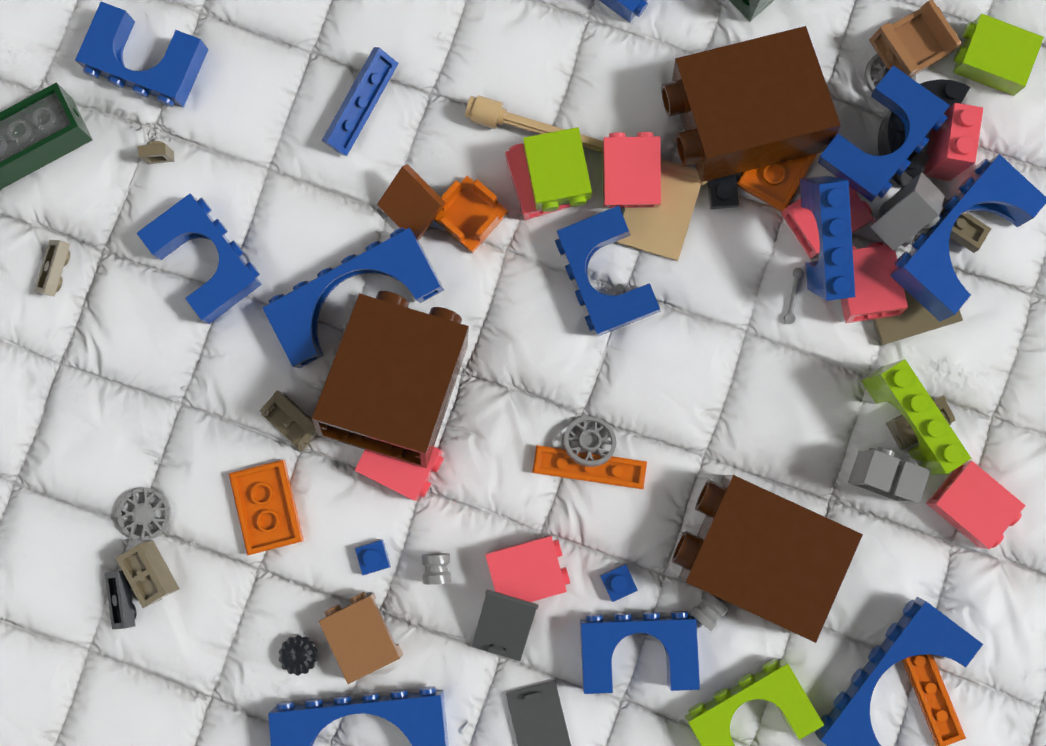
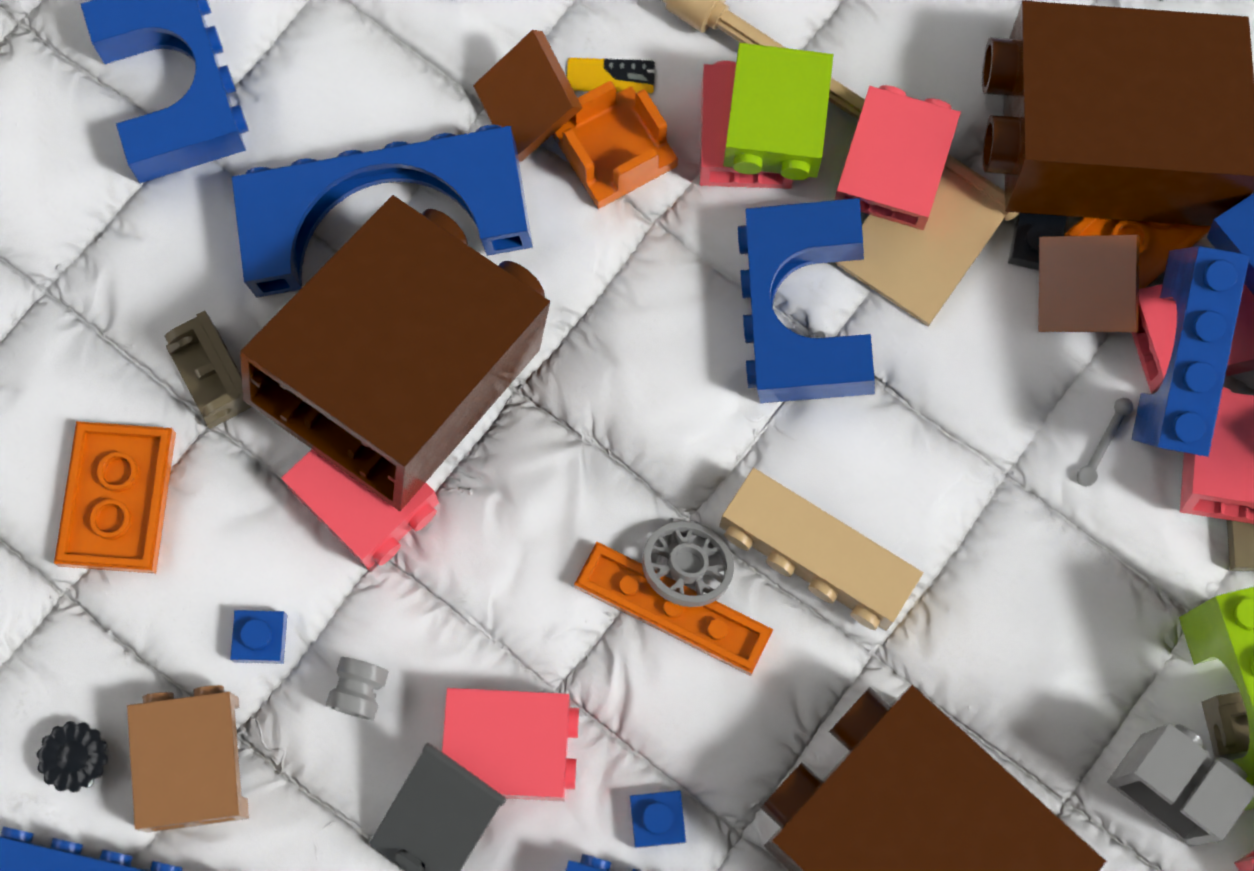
camera: 10 degrees right, 10 degrees down
(452, 171) = (590, 73): none -> sticker
(659, 410) = (819, 550): none -> tan brick
(760, 211) = (1089, 283): none -> dark orange tile

